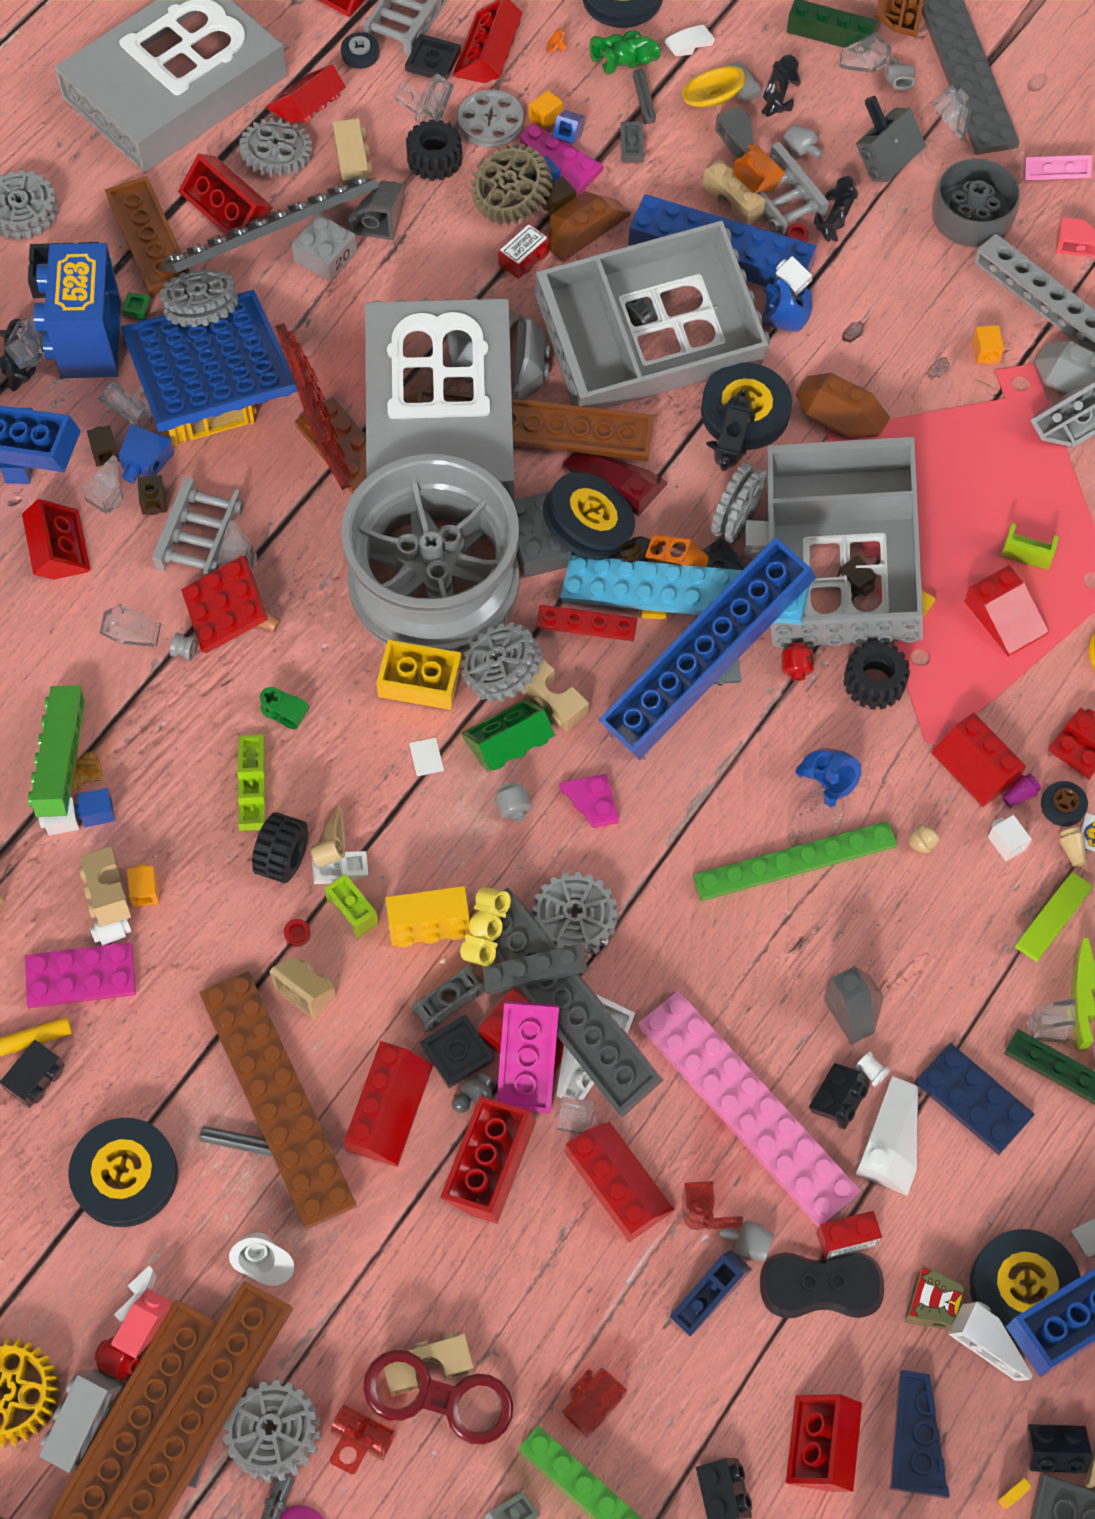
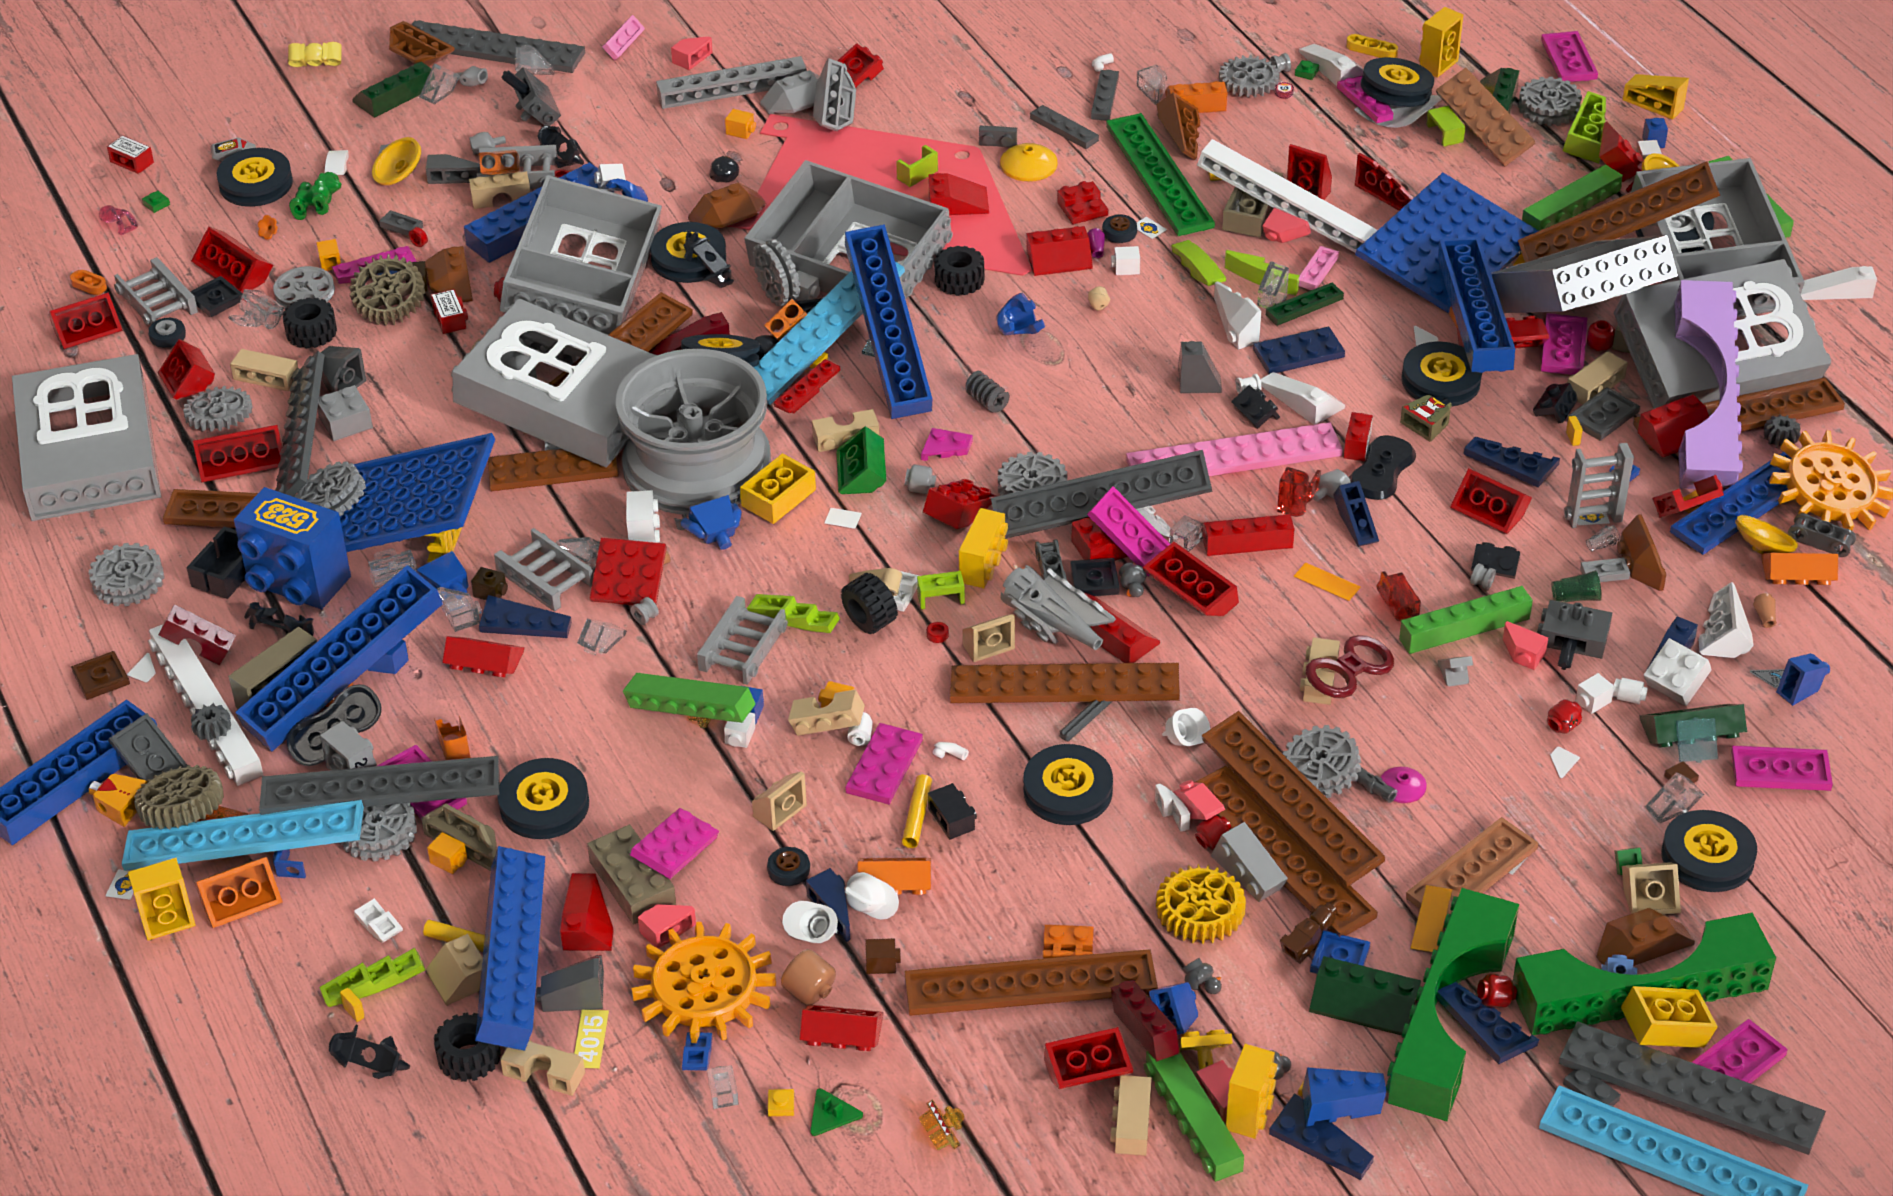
camera: 60 degrees left, 20 degrees down
(25, 343) = (281, 600): clear slope -> none
(125, 546) = (515, 618): none -> dark blue wing
(129, 1028) = (951, 748): none -> white arm
(174, 734) = (729, 626): none -> light grey fence
(283, 707) = (745, 572): green piece -> none
(298, 577) = (641, 516): none -> white brick
(313, 405) = (520, 442): clear red plate -> none
(341, 642) = (712, 521): none -> blue torso
(360, 1033) = (1054, 606): none -> light grey piece
(362, 1434) = (1354, 717): clear red piece -> none
(485, 926) = (1016, 516): light yellow piece -> none
(501, 662) = (806, 435): light grey piece -> none
(502, 858) = (957, 502): none -> red slope
(535, 969) = (1068, 500): dark grey plate -> none
(569, 126) = (358, 246): blue brick -> none
(592, 1306) = (1327, 581): none -> light orange sticker
(618, 166) = (418, 237): none -> red tile
(630, 552) = (768, 342): dark brown plate -> none
(644, 96) = (363, 204): dark grey axle -> none
(683, 1488) = (1483, 576): none -> light grey wheel
(691, 799) = (987, 392): none -> dark grey piece
(784, 71) = (418, 127): black piece -> none
(794, 861) = (1068, 367): bright green plate -> none
(797, 661) = (918, 303): red head -> none
(904, 369) = (724, 169): none -> black hair
(972, 1007) = (1239, 316): none -> white wedge
(980, 185) = (621, 80): dark grey wheel -> none
(988, 1338) = (1470, 396): white slope -> none
(1074, 846) = (1153, 236): tan cone -> none

